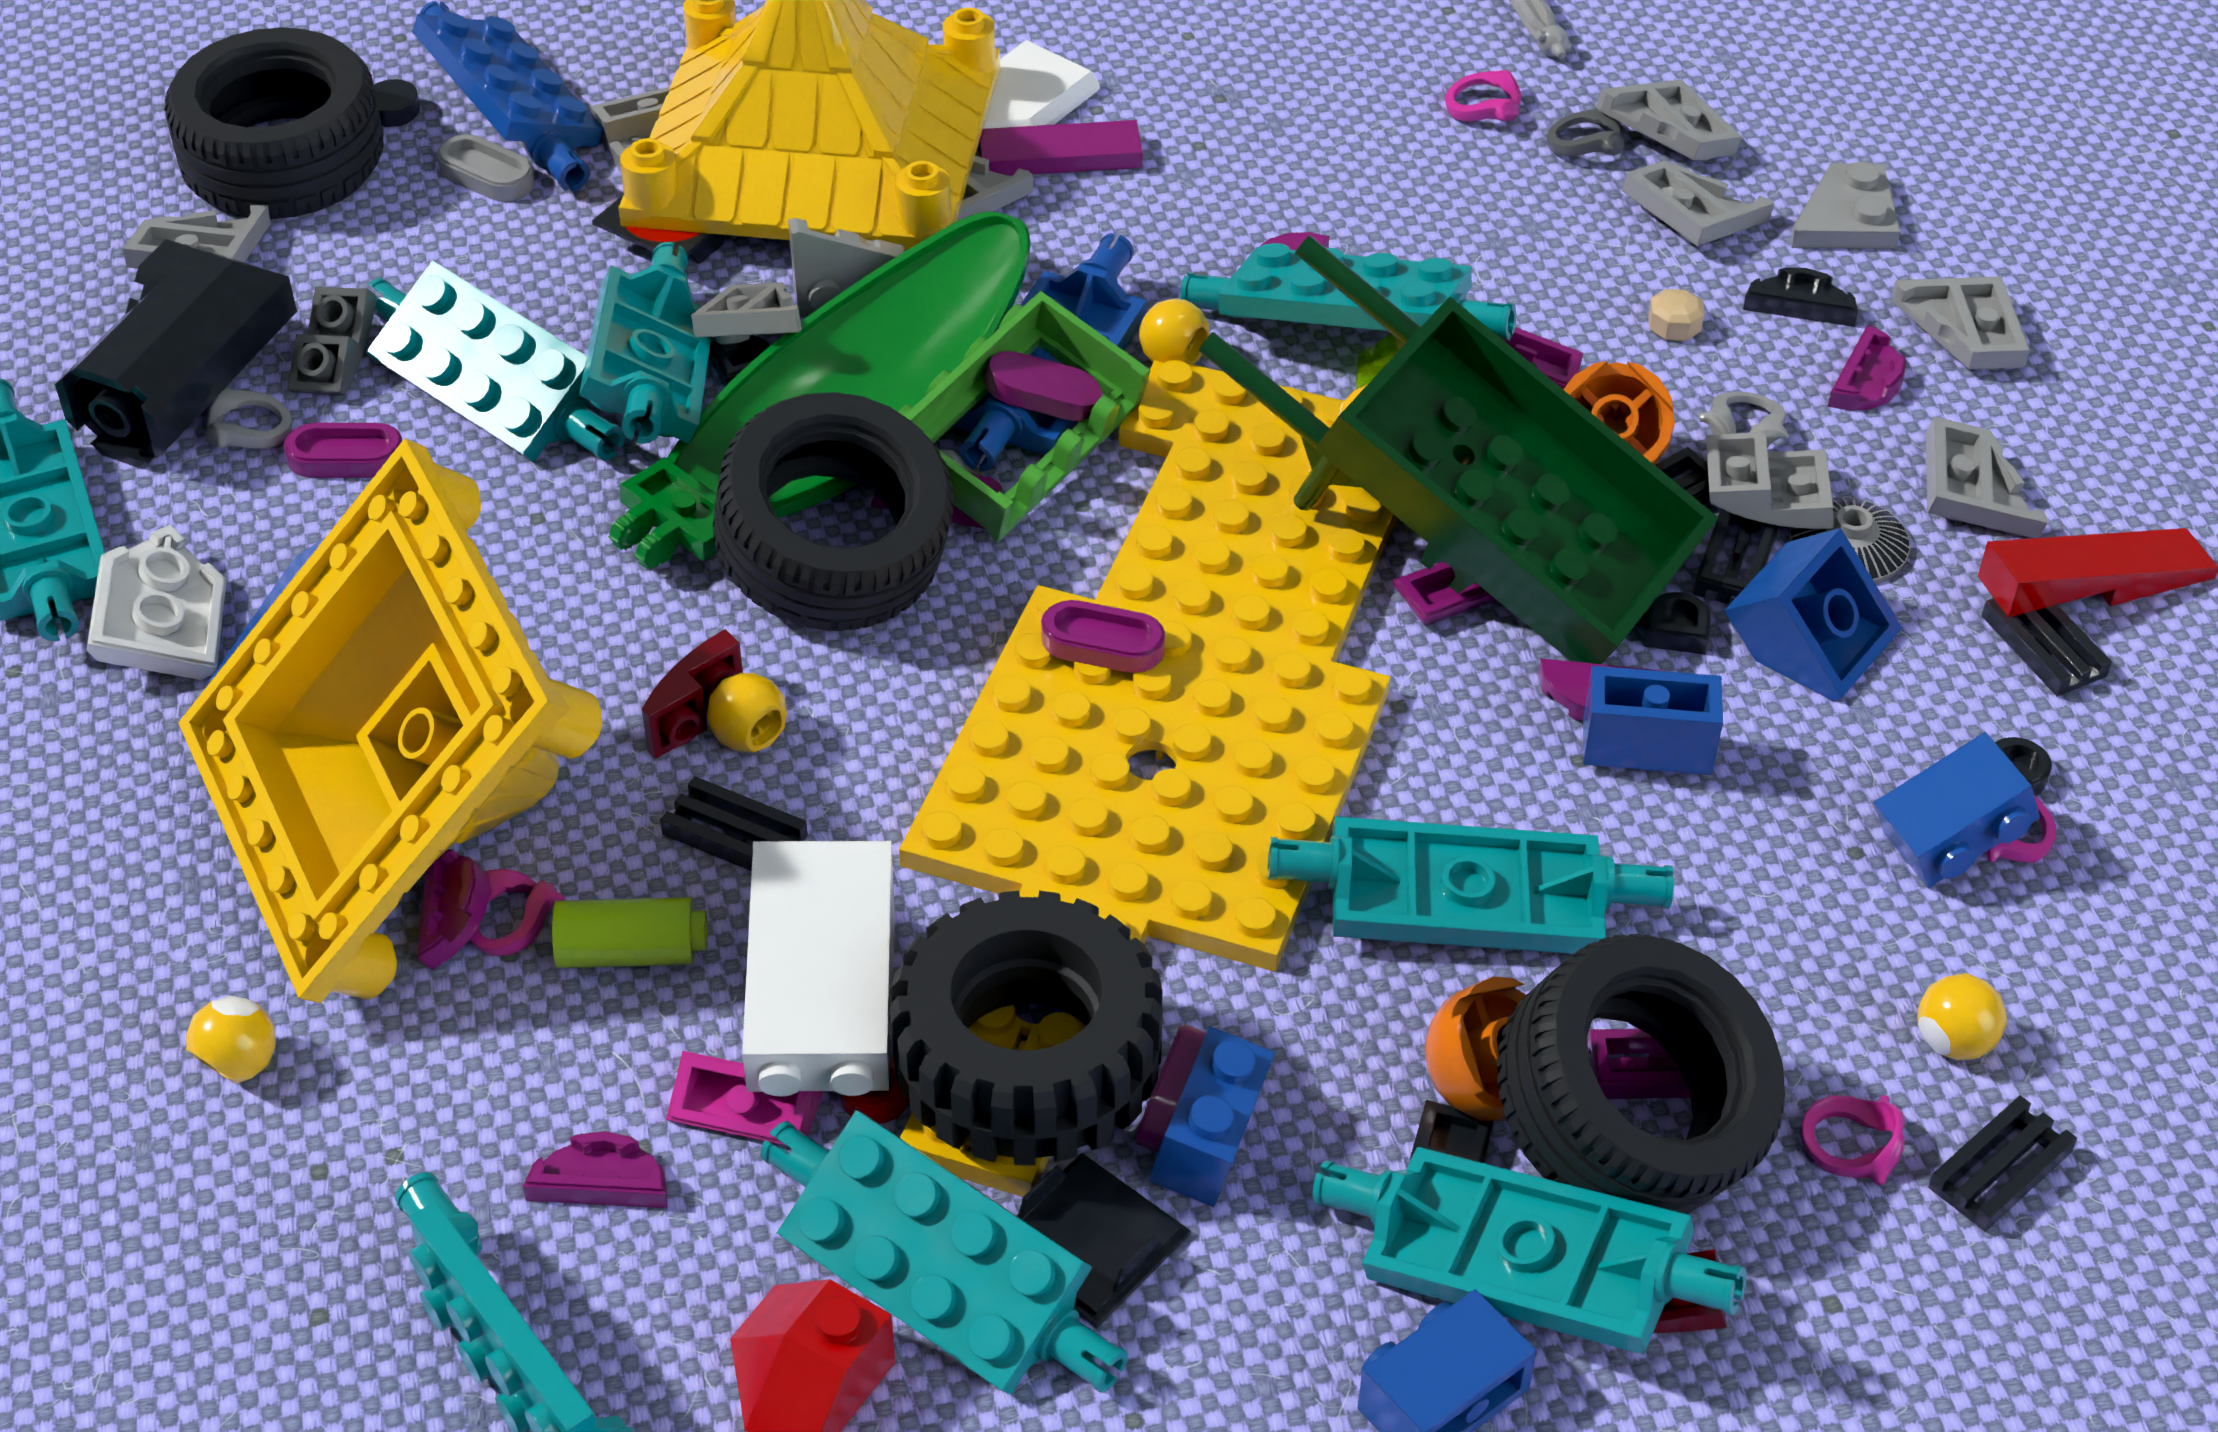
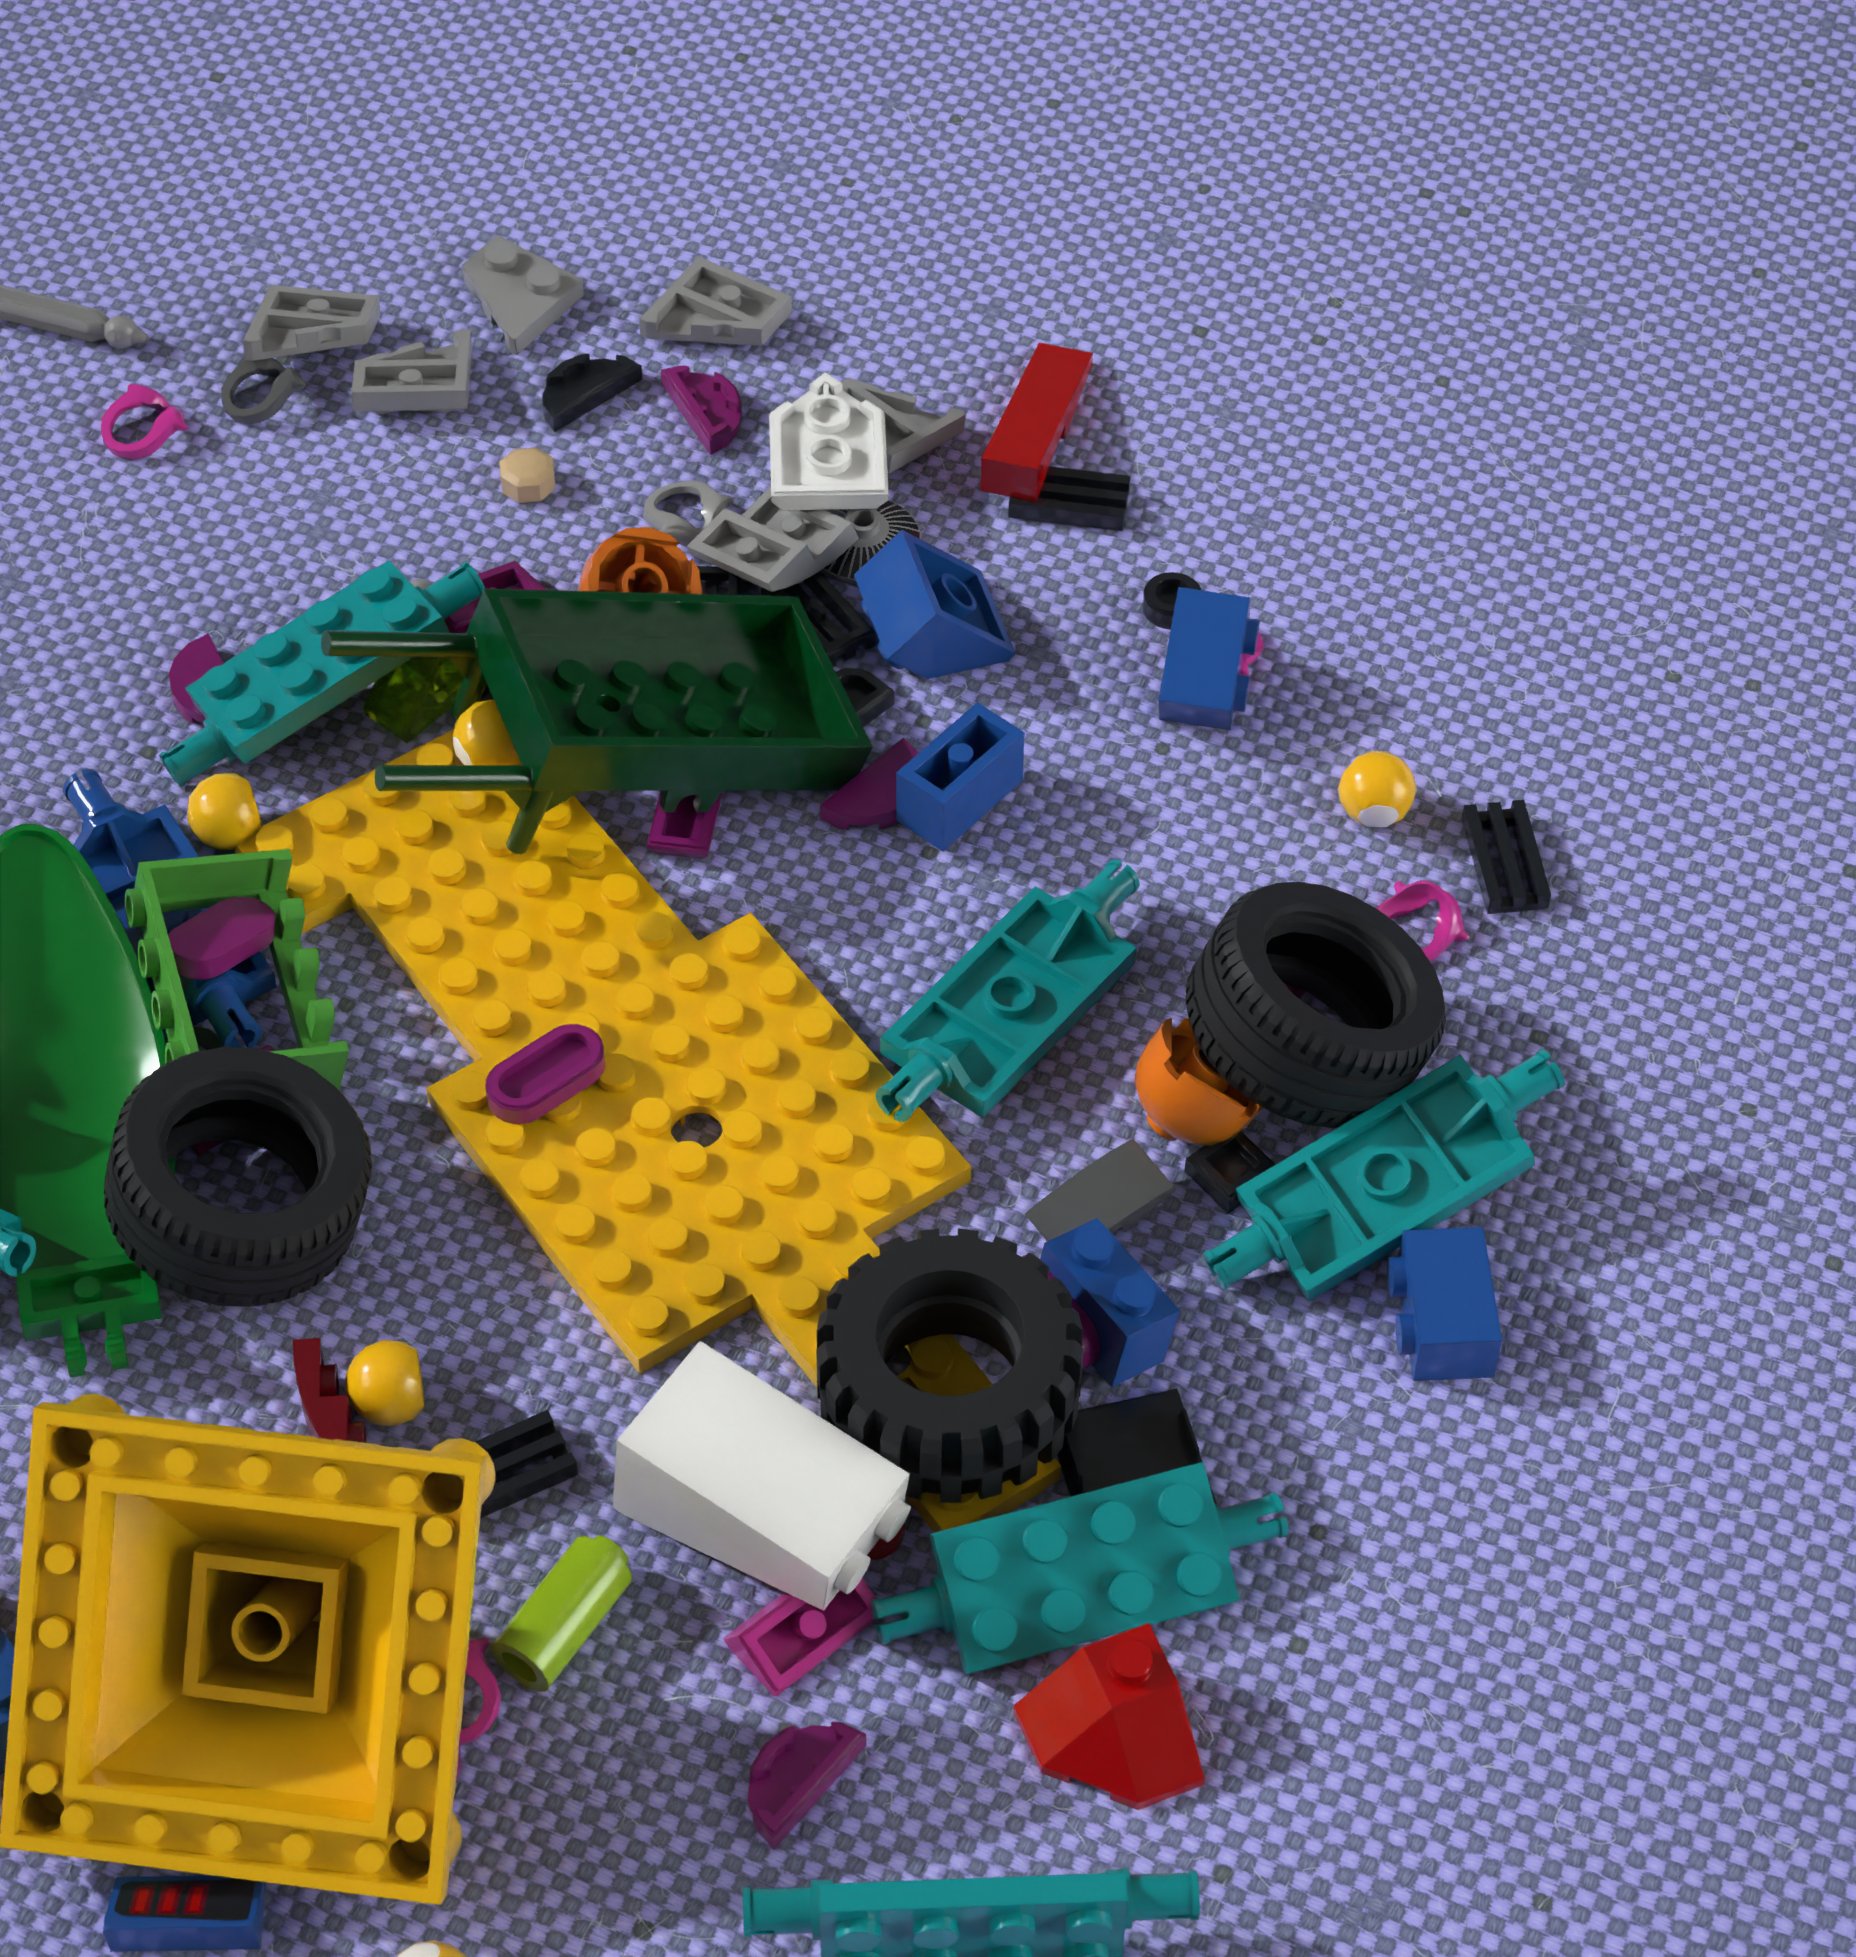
camera: 55 degrees left, 5 degrees up
(208, 866) = (184, 1914): none -> slope
(1327, 1059) = (1113, 1188): none -> dark grey slope
(1886, 451) = (828, 451): none -> white tile

